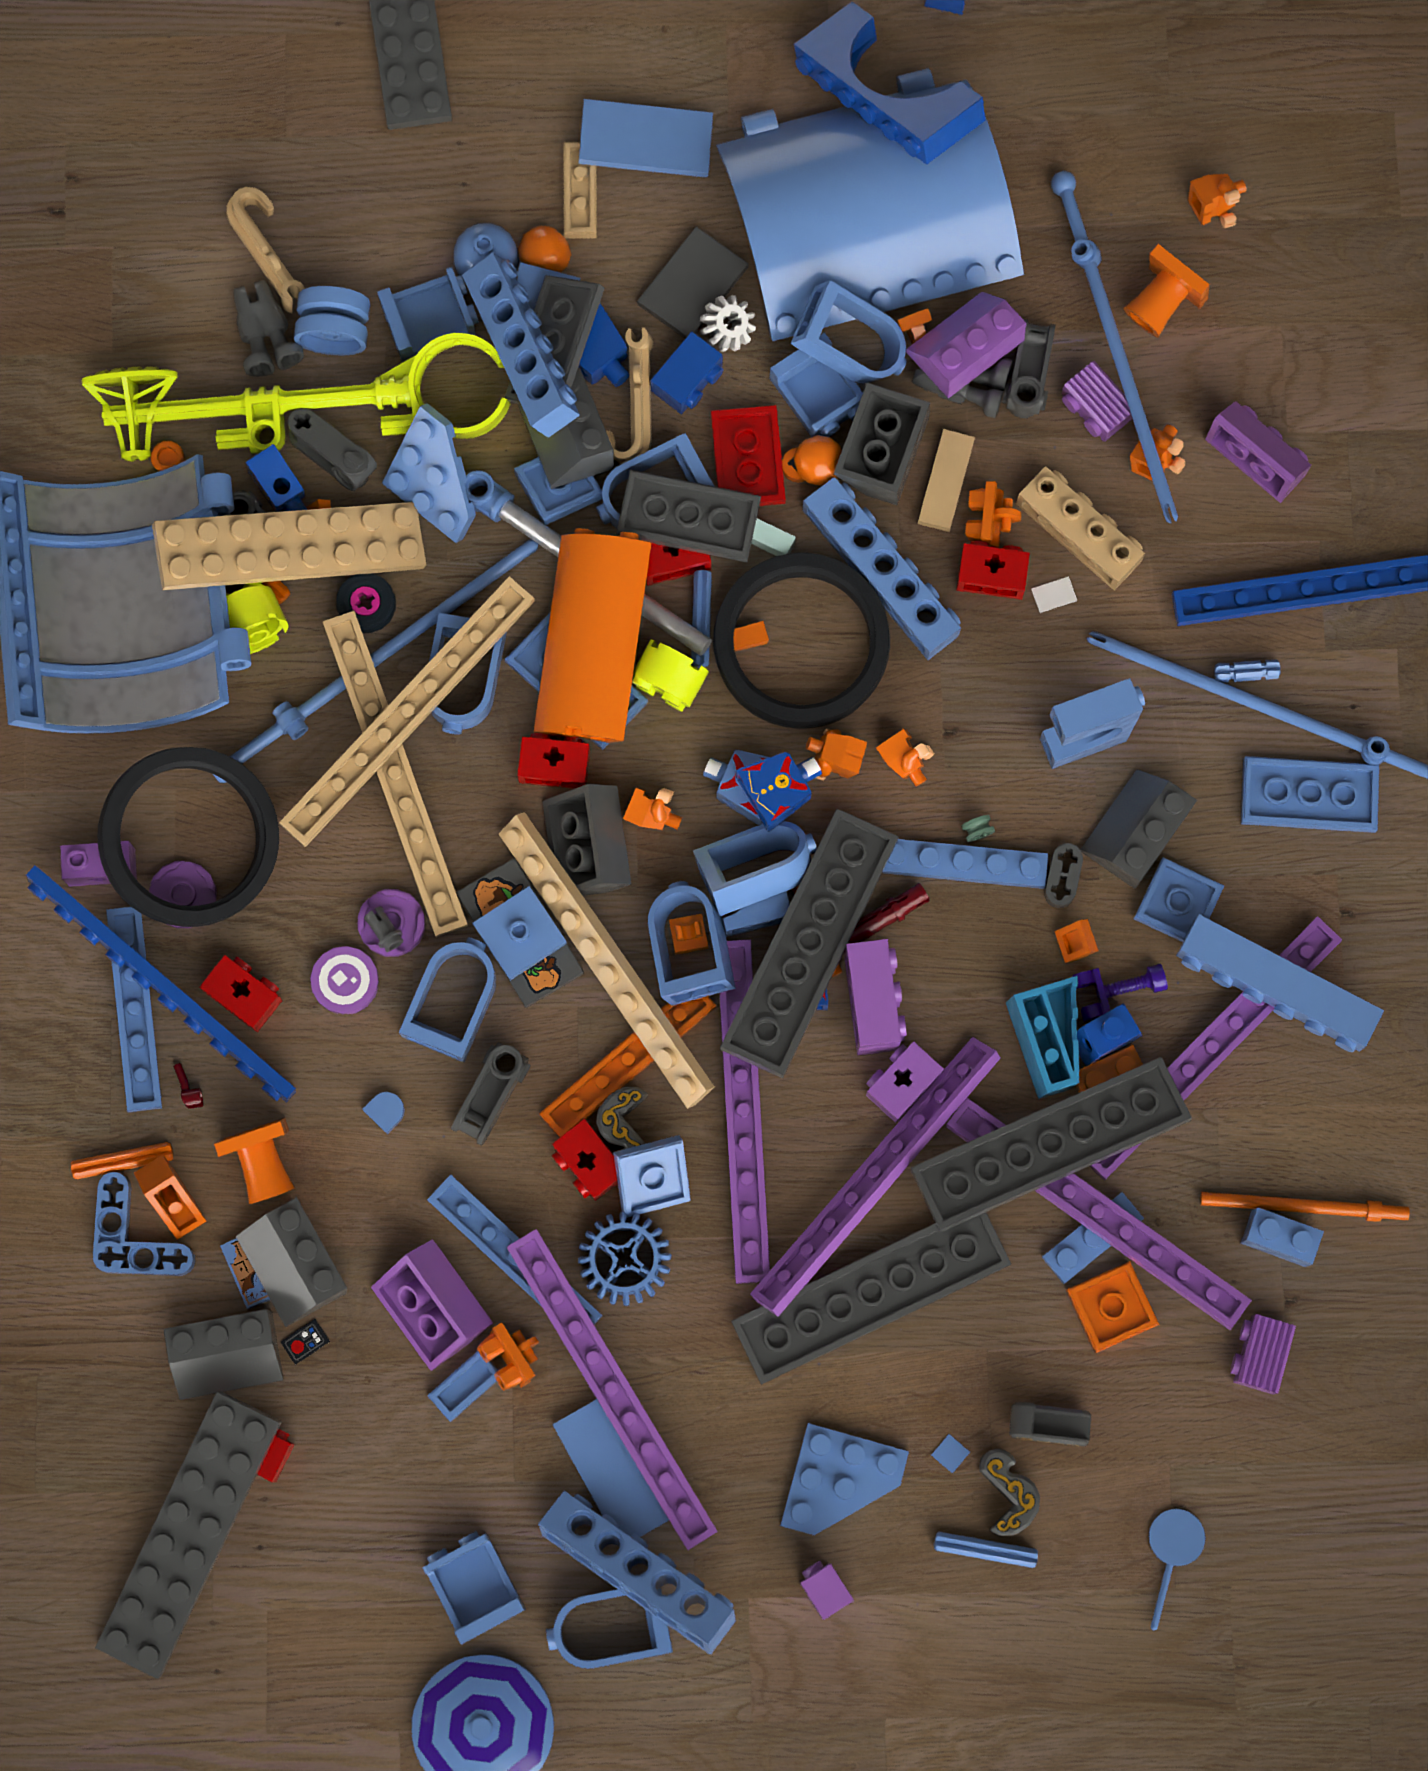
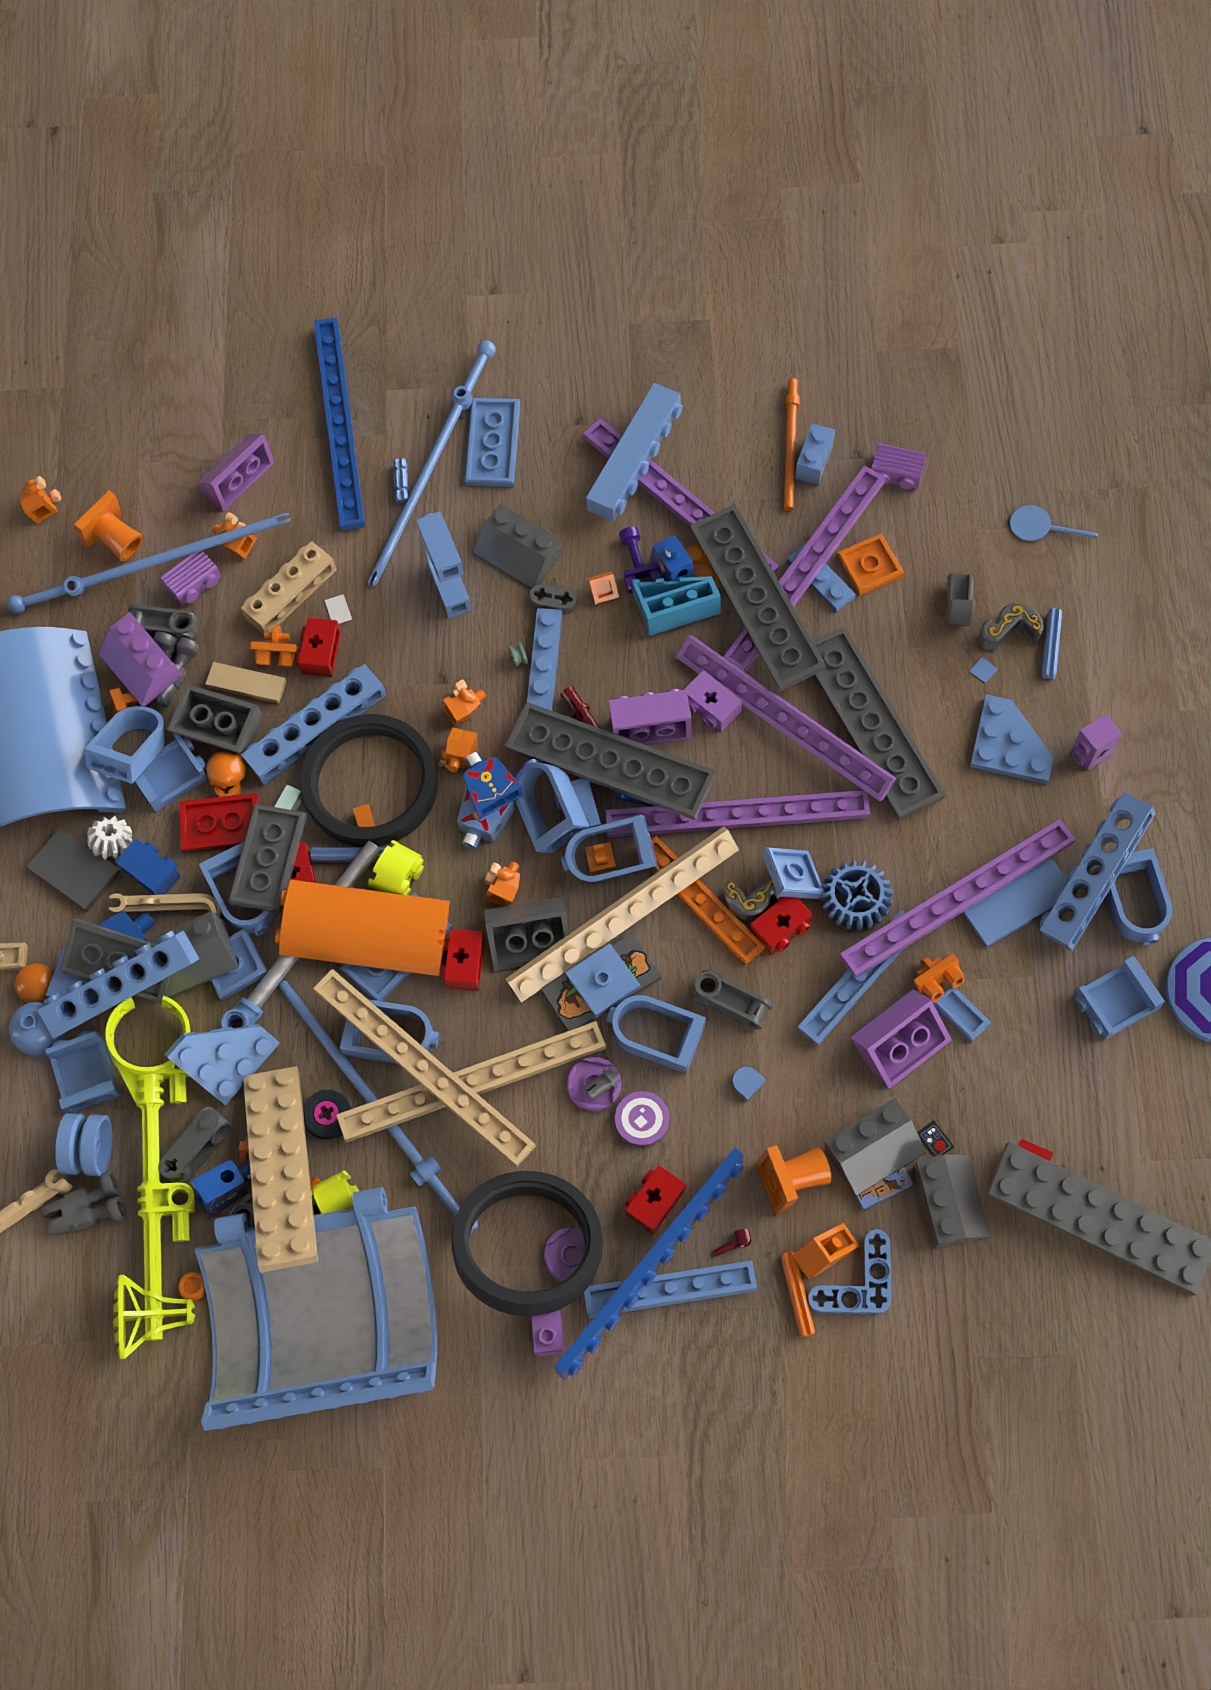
camera: 85 degrees left, 10 degrees down
(1176, 899) = (572, 523): medium blue plate -> none

